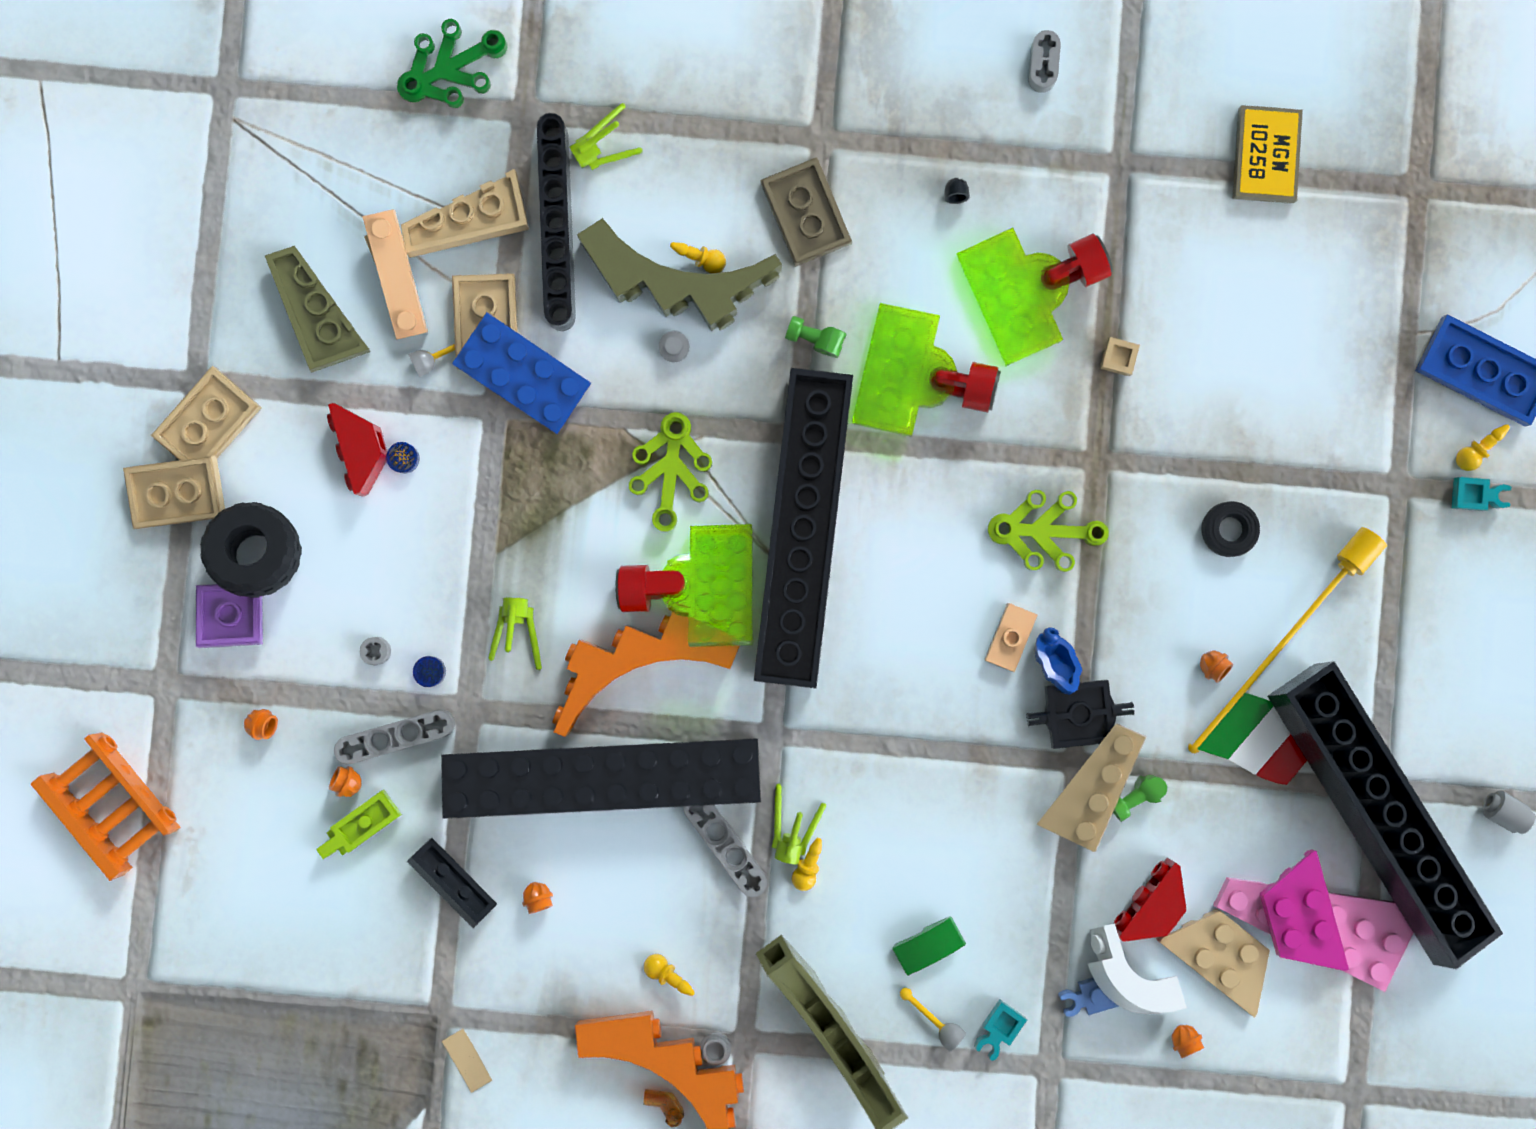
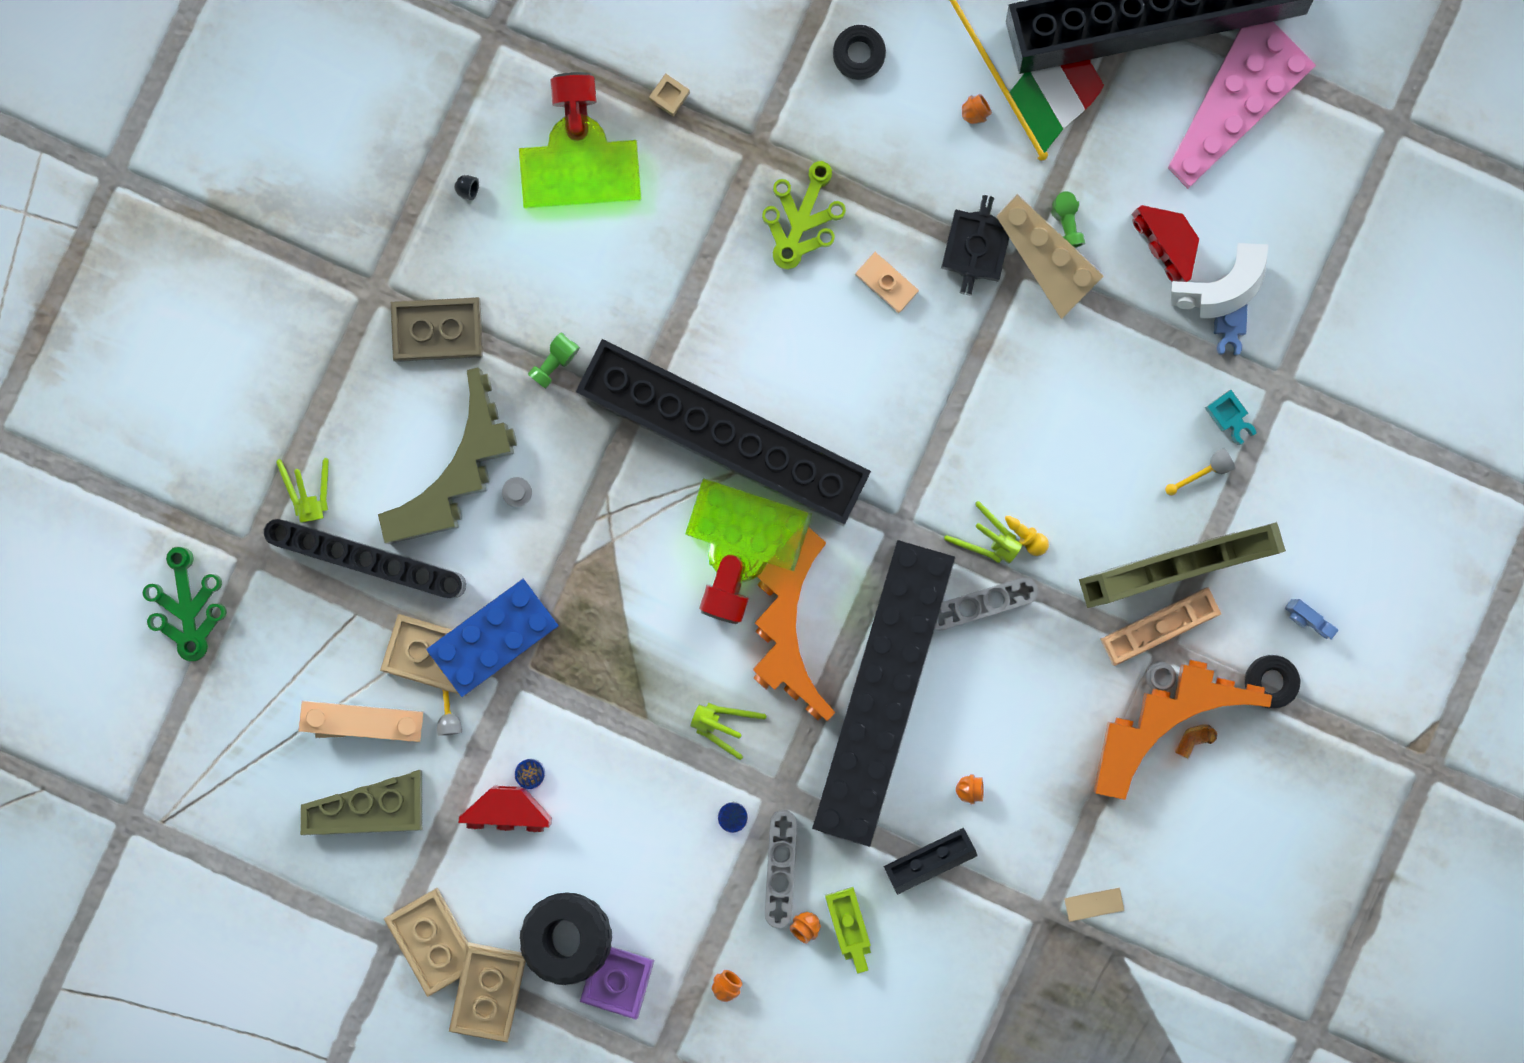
camera: 70 degrees left, 0 degrees up
(365, 651) = (699, 851): light grey bush -> none
(482, 215) = (333, 626): tan wing -> none
(657, 968) = (1070, 703): yellow bar -> none
(671, 466) = (625, 532): lime plant -> none
(711, 260) = (450, 430): yellow bar -> none
(765, 1031) = (1160, 626): none -> light nougat plate
(912, 373) = (617, 286): clear neon green plate -> none
(929, 946) = (1135, 453): green slope -> none
(1051, 61) = (379, 59): light grey beam -> none
(1058, 661) = (922, 247): blue arm -> none
(1186, 1040) = (1298, 255): orange plate -> none
(1223, 956) = (1235, 196): tan wing -> none
(1303, 916) = (1224, 112): dark pink wing -> none

